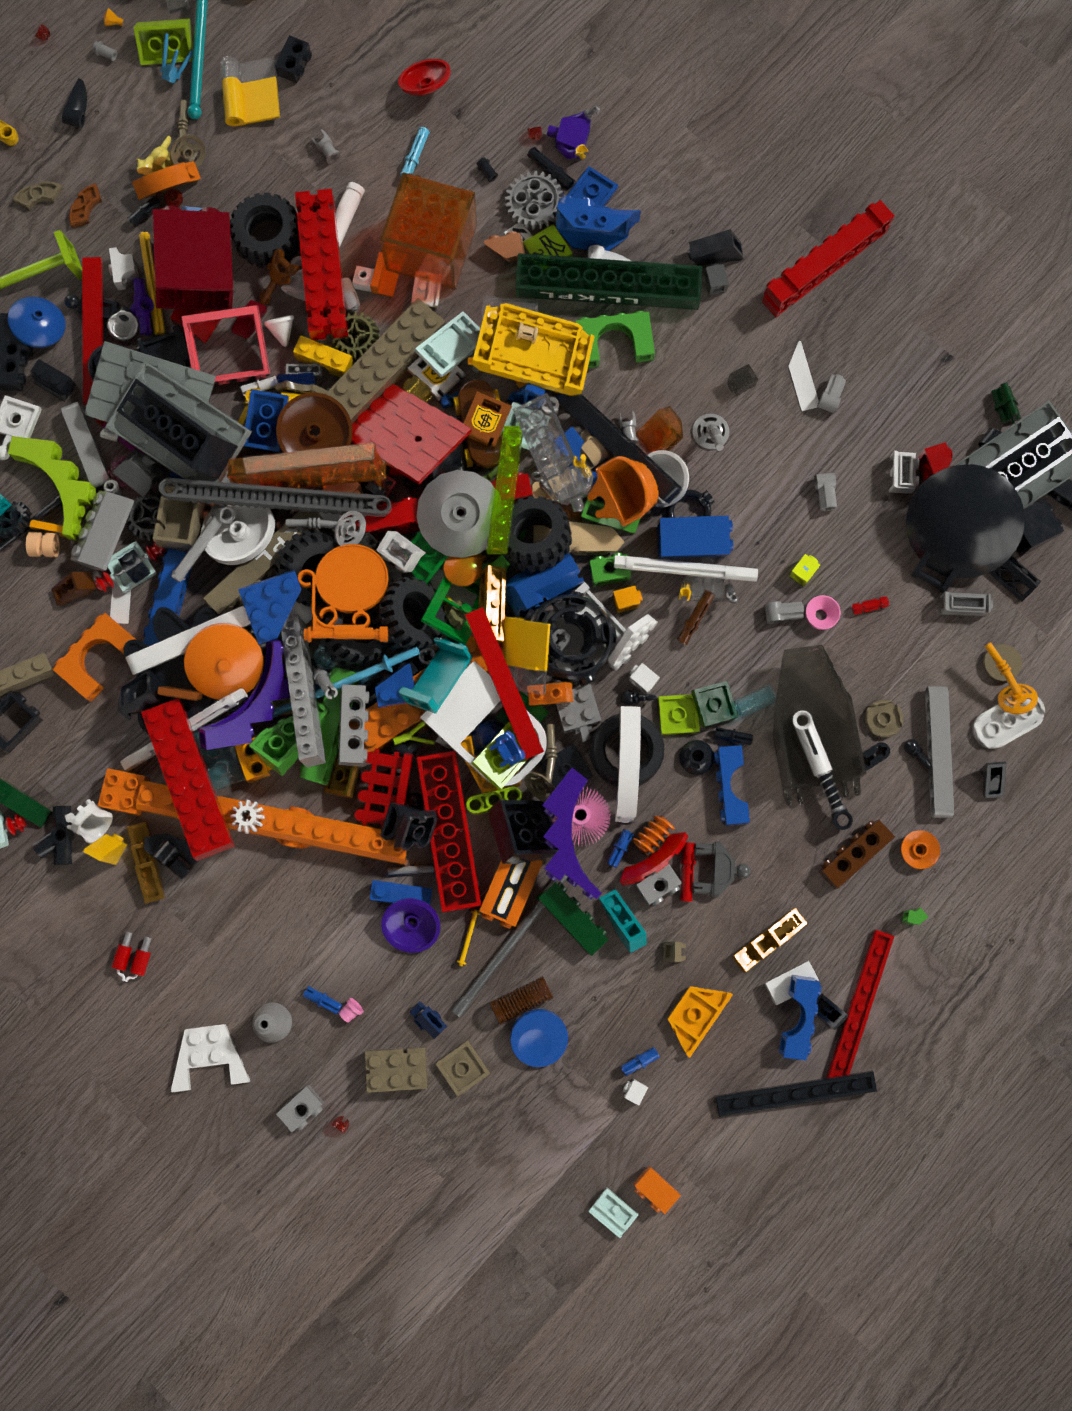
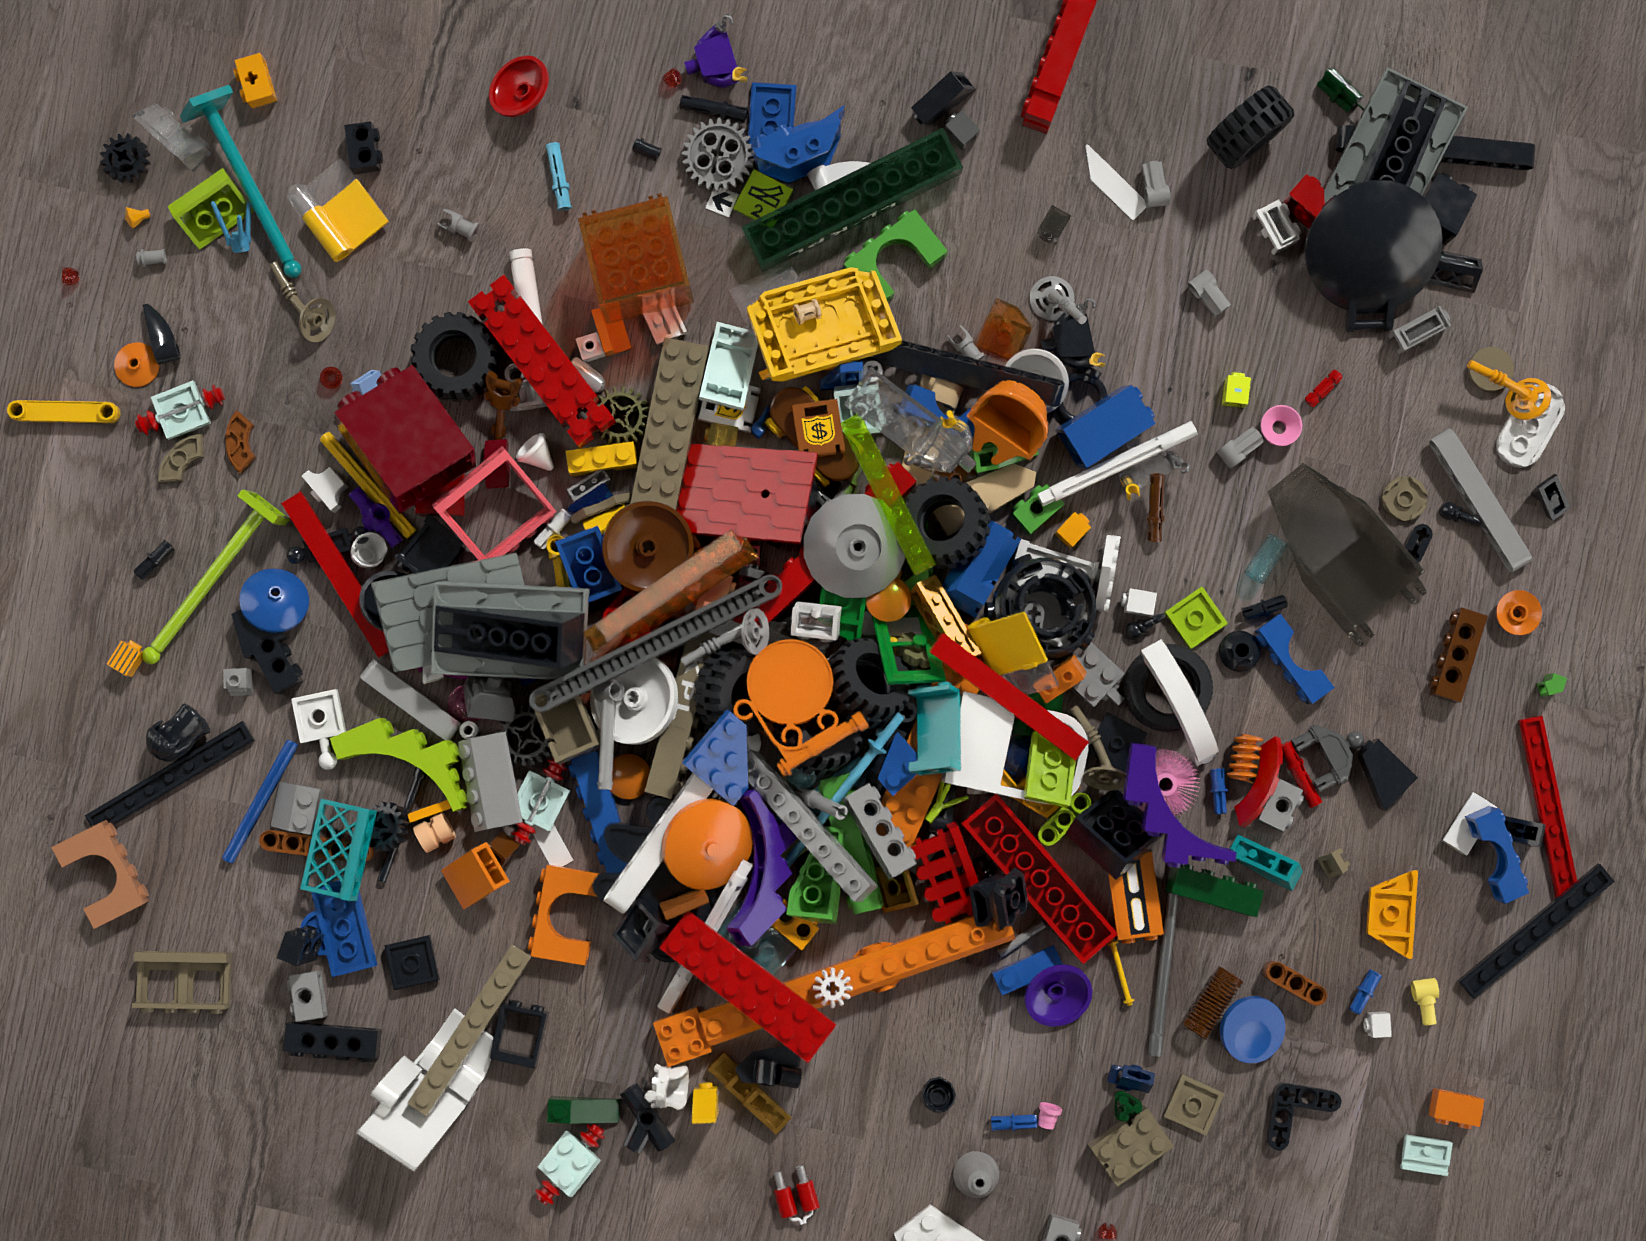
camera: 30 degrees left, 5 degrees up
(48, 123) = (144, 372): none -> orange dish
(49, 589) = (475, 875): none -> orange brick
(52, 380) = (331, 653): black window -> none
(57, 161) = (180, 410): none -> light aqua plate
(134, 566) = (545, 798): black bracket -> none
(144, 211) = (309, 410): black axle -> none
(157, 160) = (290, 346): light yellow animal -> none
(166, 179) = (314, 365): orange arch -> none
(200, 584) = (629, 776): none -> orange dish
(279, 945) = (938, 1095): none -> black hair
(411, 1036) = (1126, 1106): none -> dark green piece
(506, 246) = (722, 225): nougat slope -> none
(508, 749) = (1054, 761): blue piece -> none
(532, 1111) = (1288, 1105): none -> black beam
(598, 1030) = (1304, 988): none -> dark orange beam
(684, 1090) = (1425, 993): none -> light yellow pin
(707, 466) = (1073, 341): none -> black torso
(714, 704) = (1227, 586): dark green plate -> none
(751, 907) = (1385, 773): none -> black slope
(769, 940) = (1421, 794): slope -> none
(821, 767) = (1374, 589): piece -> none
(924, 387) = (1250, 127): none -> black tyre

